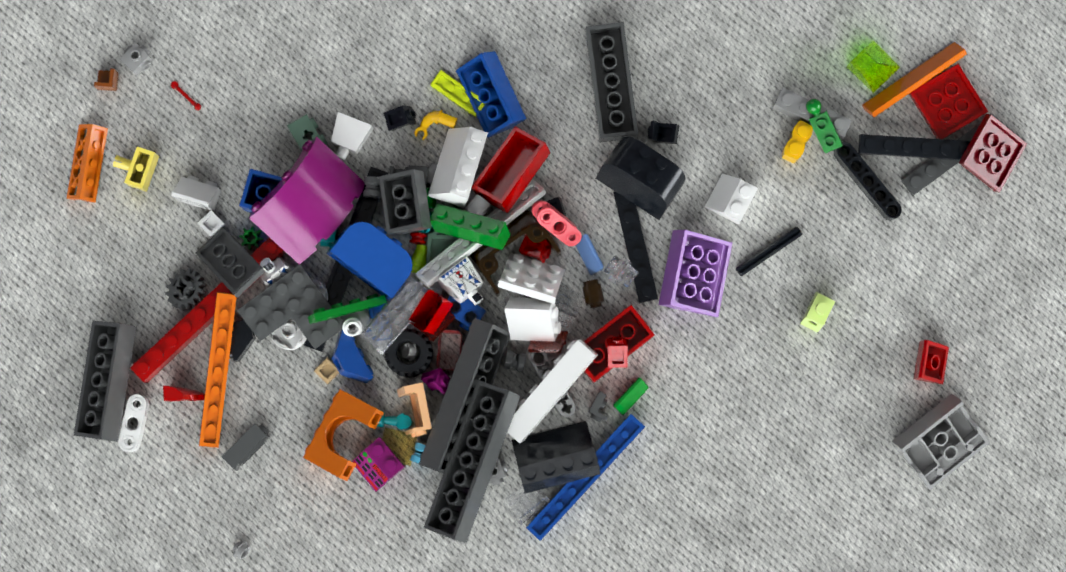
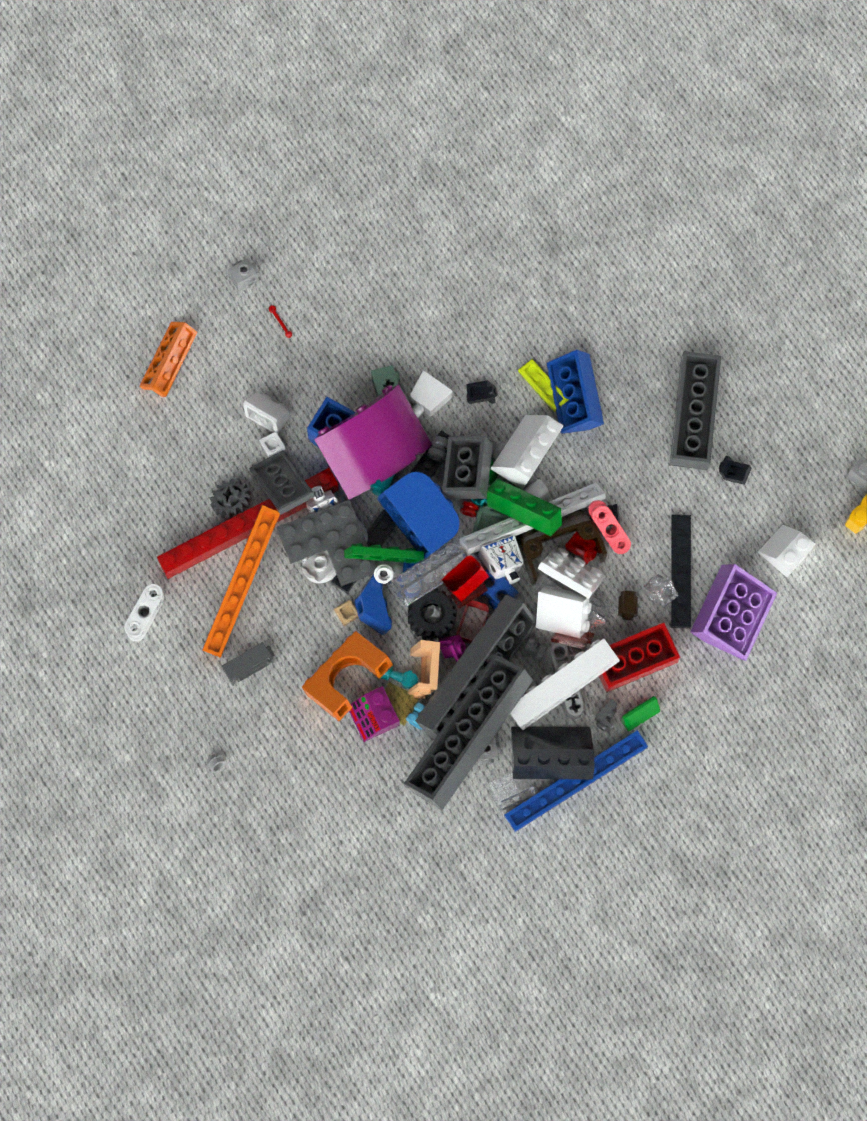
camera: 10 degrees right, 10 degrees down
(105, 380) = (128, 563): dark grey brick -> none
(107, 80) = (209, 288): dark orange panel -> none
(139, 169) = (217, 375): light yellow brick -> none
(181, 394) = (195, 593): red slope -> none
(241, 340) = (272, 560): black slope -> none
(254, 242) = (304, 463): green gear -> none
(419, 258) = (465, 527): lime cone -> none
(435, 117) = (516, 401): yellow piece -> none
(511, 169) = (578, 465): red piece -> none
(589, 255) = (633, 568): medium blue slope -> none
(617, 352) = (639, 663): bracket -> none
(642, 176) = (704, 504): black brick -> none
(768, 251) = (811, 610): black axle -> none
(817, 312) = (847, 678): yellowish green torso -> none

